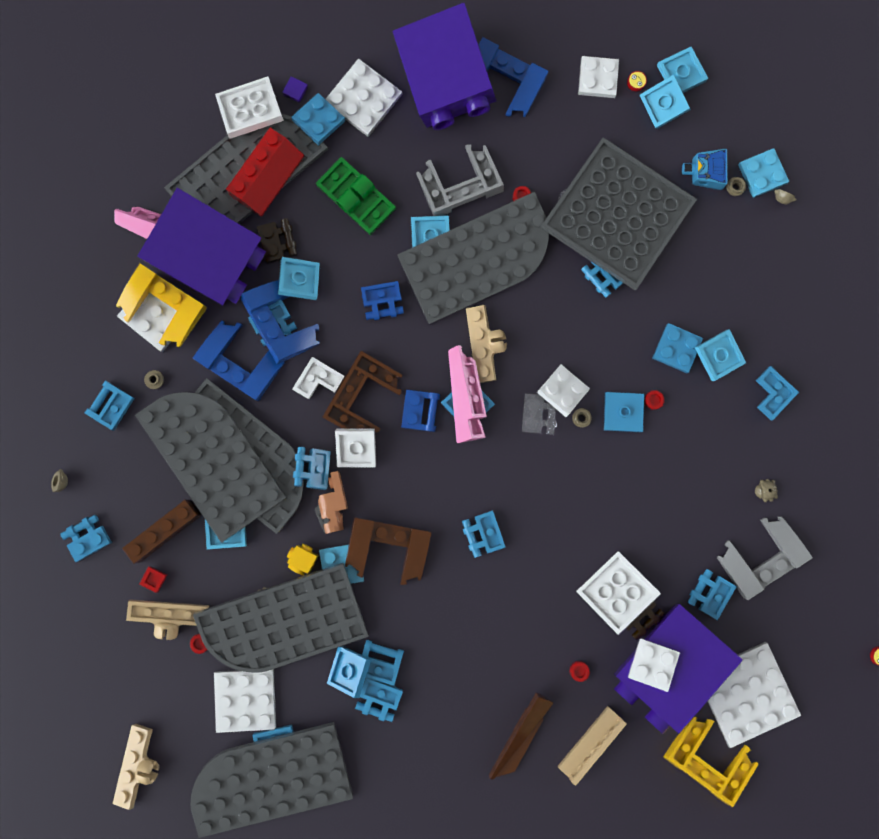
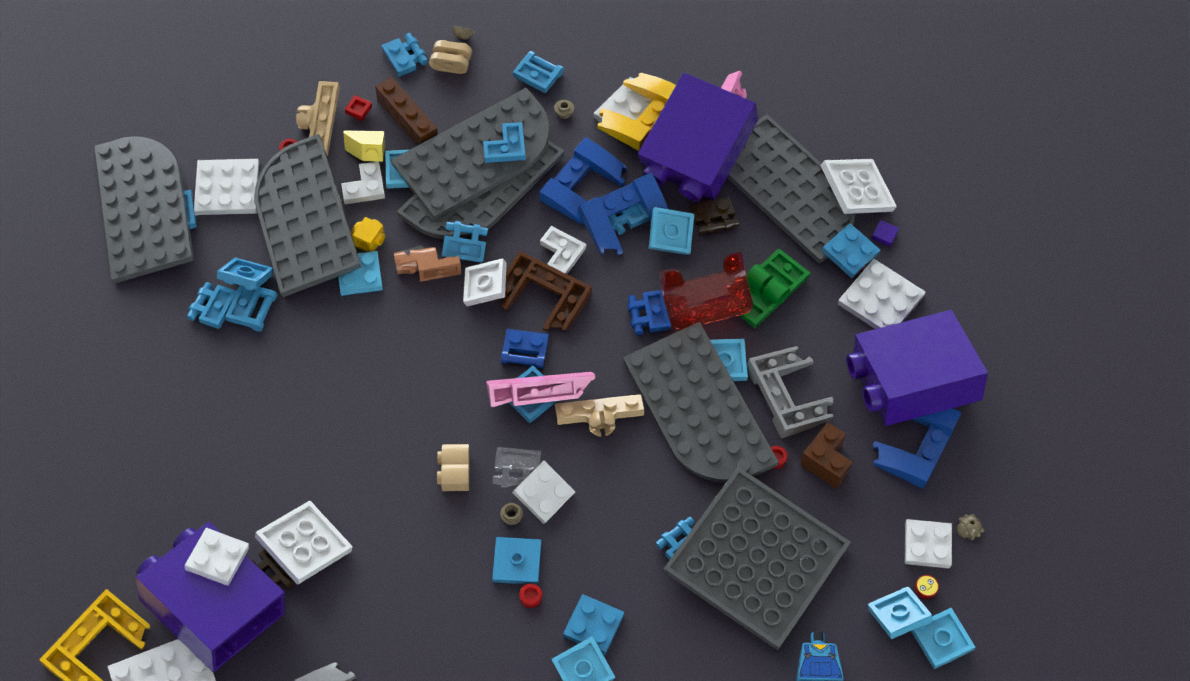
camera: 90 degrees right, 25 degrees down
(85, 483) = (450, 57): none -> tan brick
(135, 767) = (172, 95): tan plate -> none
(200, 568) = (365, 144): none -> light yellow slope
(213, 426) = (508, 149): none -> dark azure plate
(246, 563) = (368, 188): none -> white plate
(265, 172) = (786, 197): red slope -> none
(365, 531) = (381, 338): reddish brown wedge -> none
(367, 246) = (708, 296): none -> clear red windscreen
(489, 532) = (383, 413): dark azure plate -> none
(521, 736) = (154, 441): reddish brown wedge -> none
(524, 155) = (823, 456): none -> reddish brown brick
(541, 467) = (455, 467): none -> tan brick
(579, 45) = (968, 530): none -> dark tan animal
(579, 671) = (218, 505): red tile -> none
(592, 745) = (134, 514): tan fence -> none
(716, 598) = (288, 657): dark azure plate -> none

